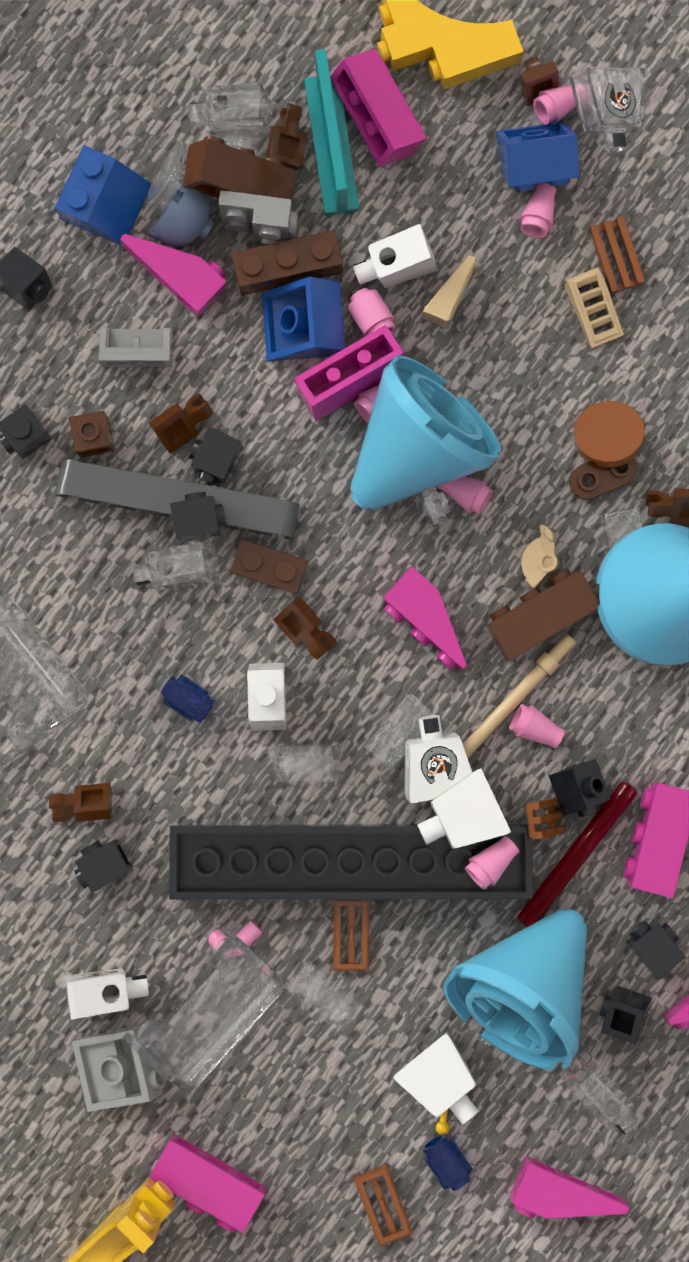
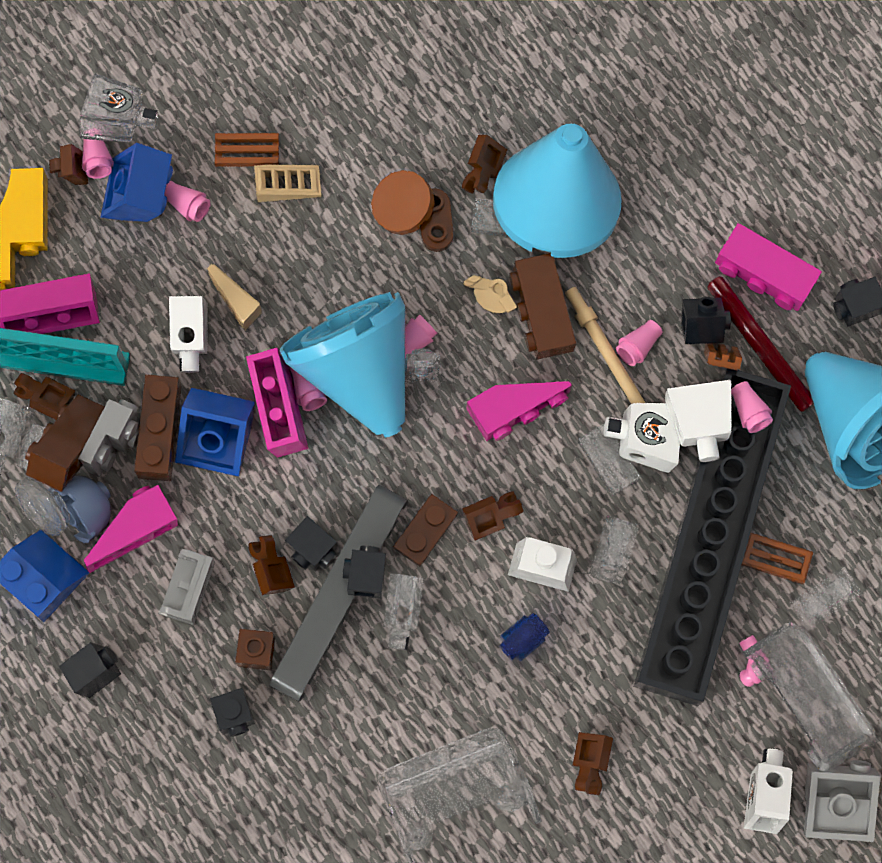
camera: 75 degrees left, 10 degrees down
(101, 865) = (652, 760): black brick -> none
(370, 311) = (227, 370): bright pink brick -> none

